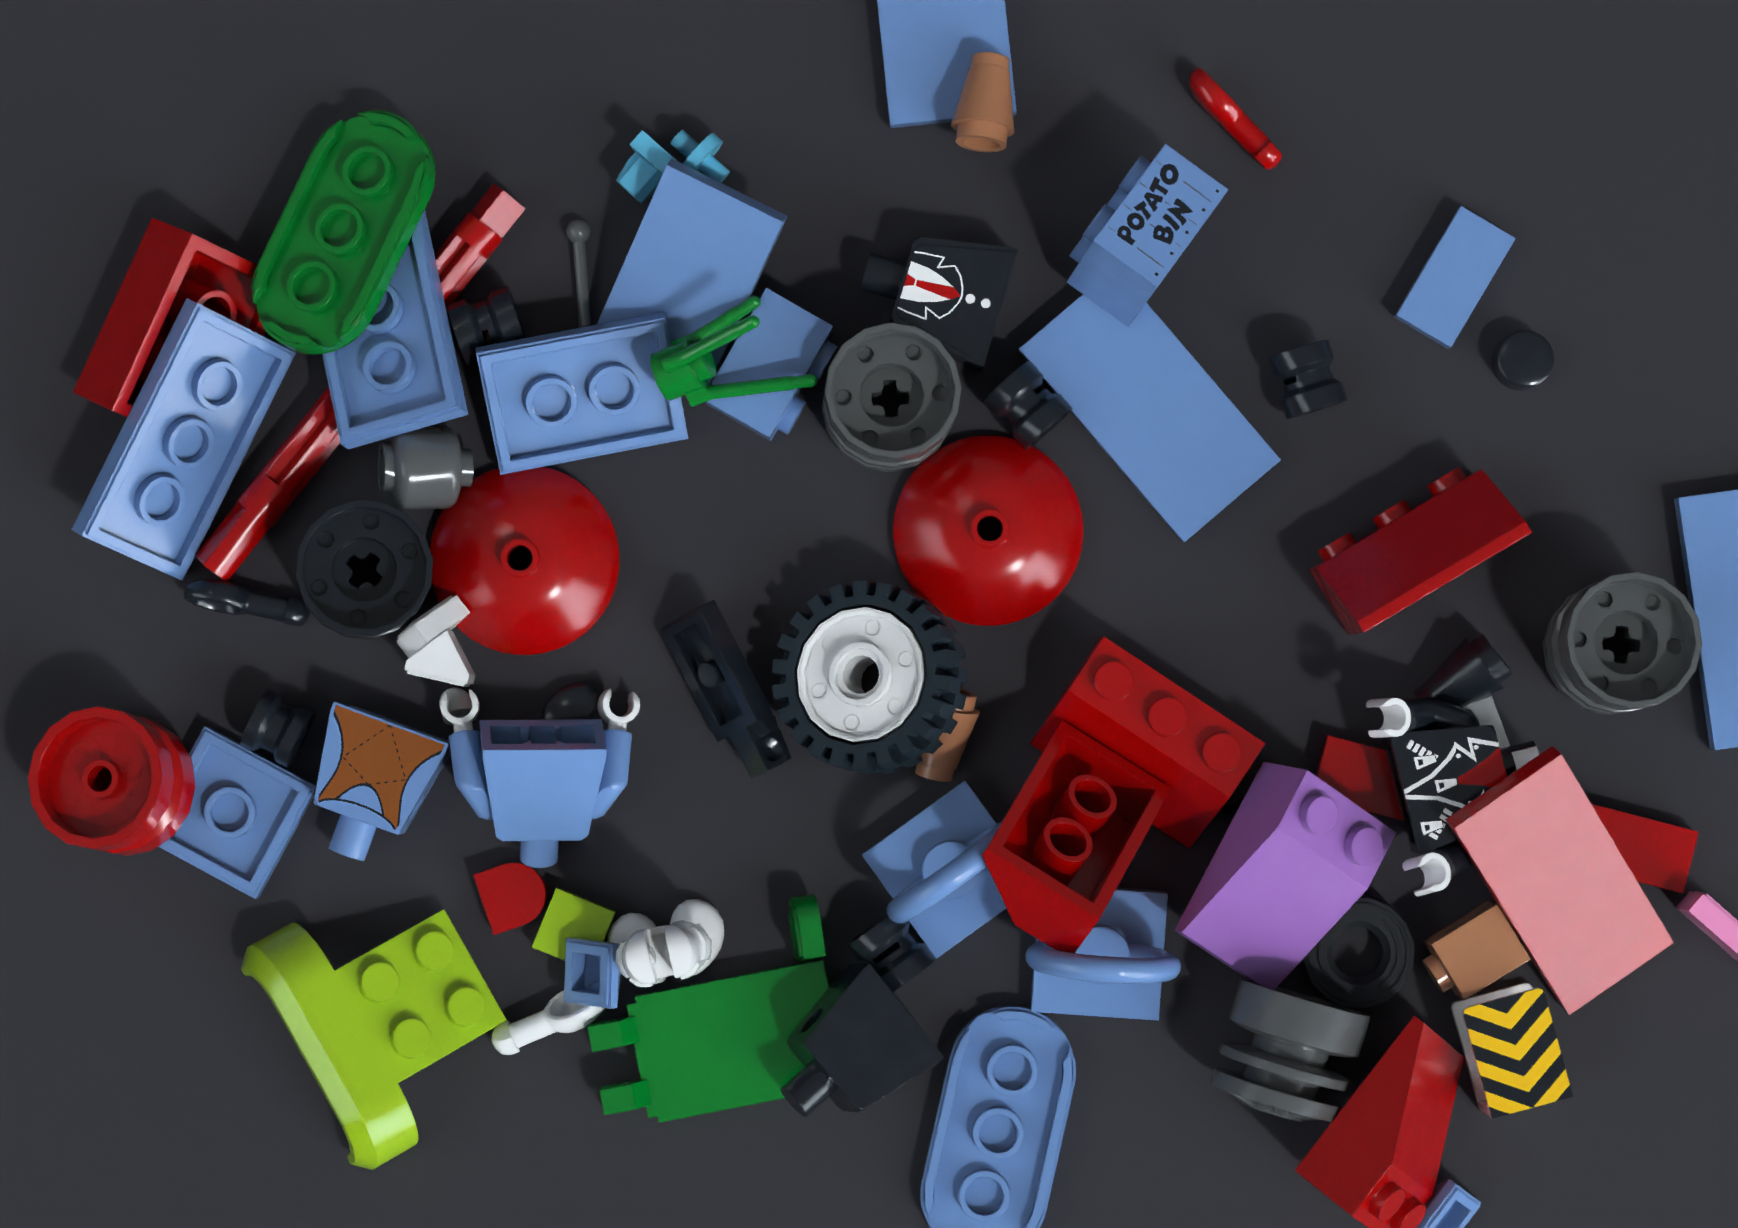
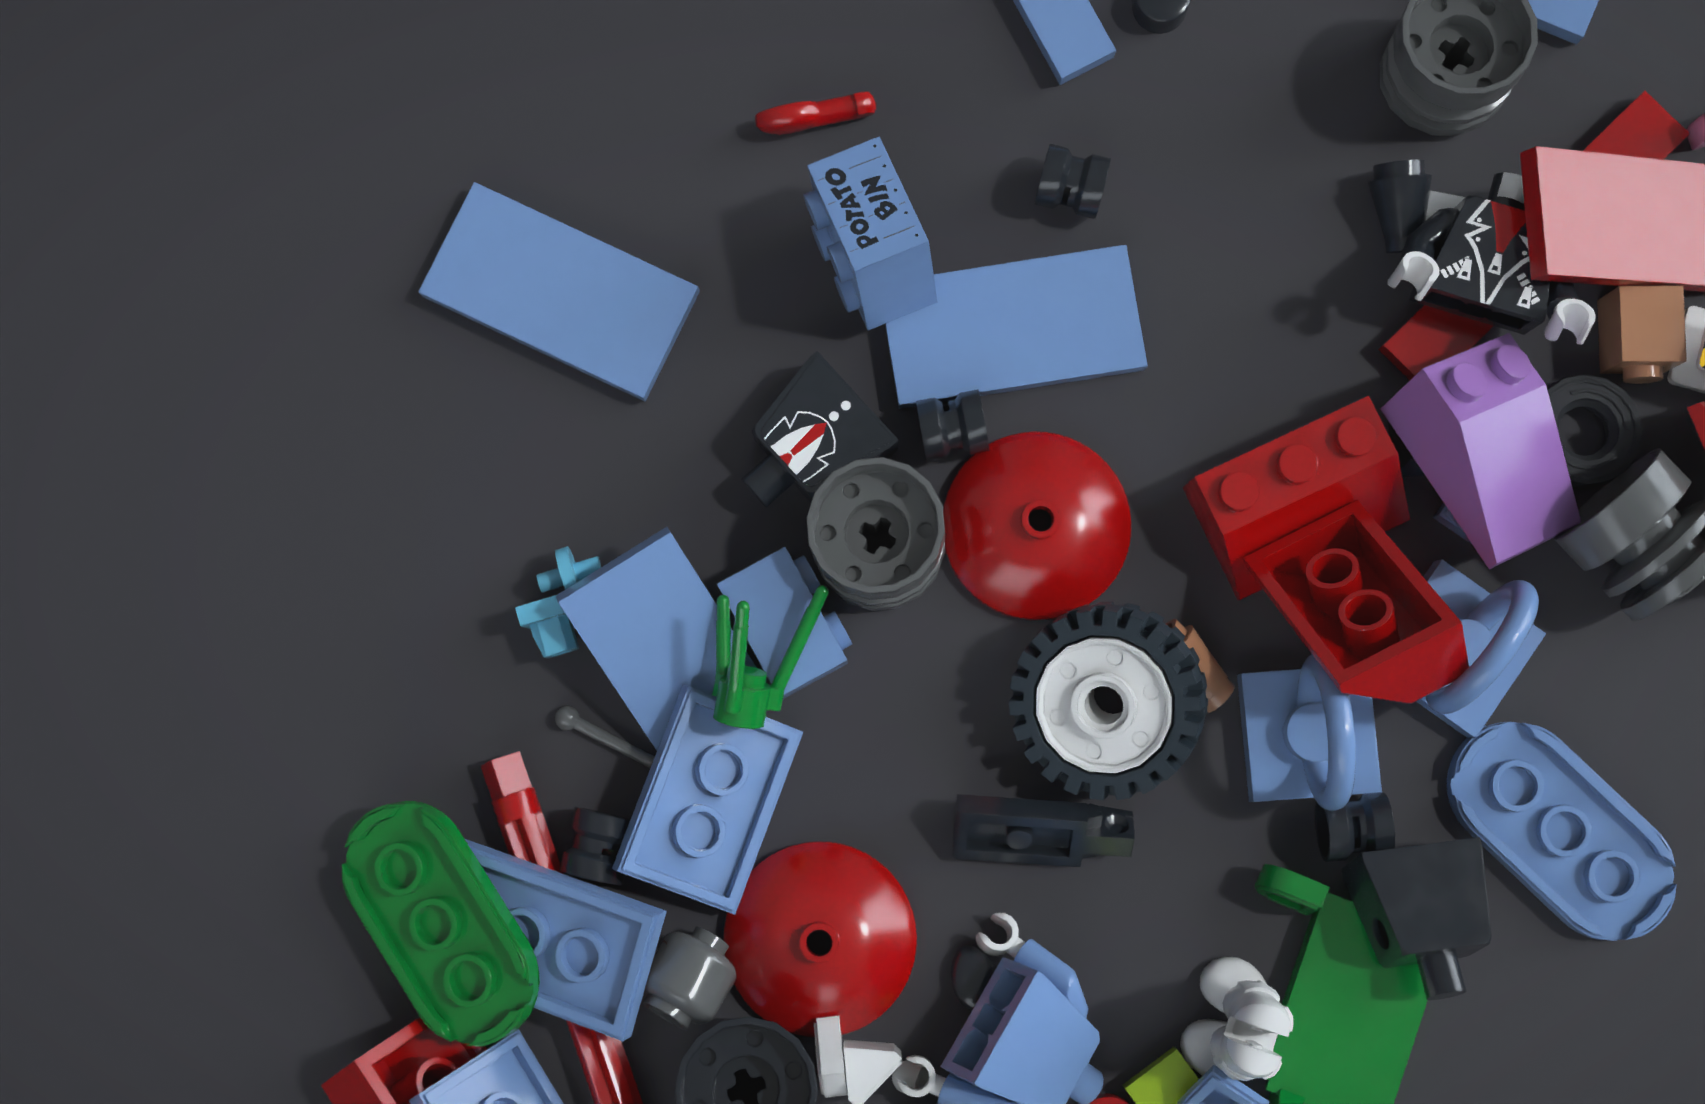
camera: 55 degrees left, 5 degrees down
(985, 105) = (677, 306): nougat cone -> none
(1416, 549) = (1277, 173): red slope -> none

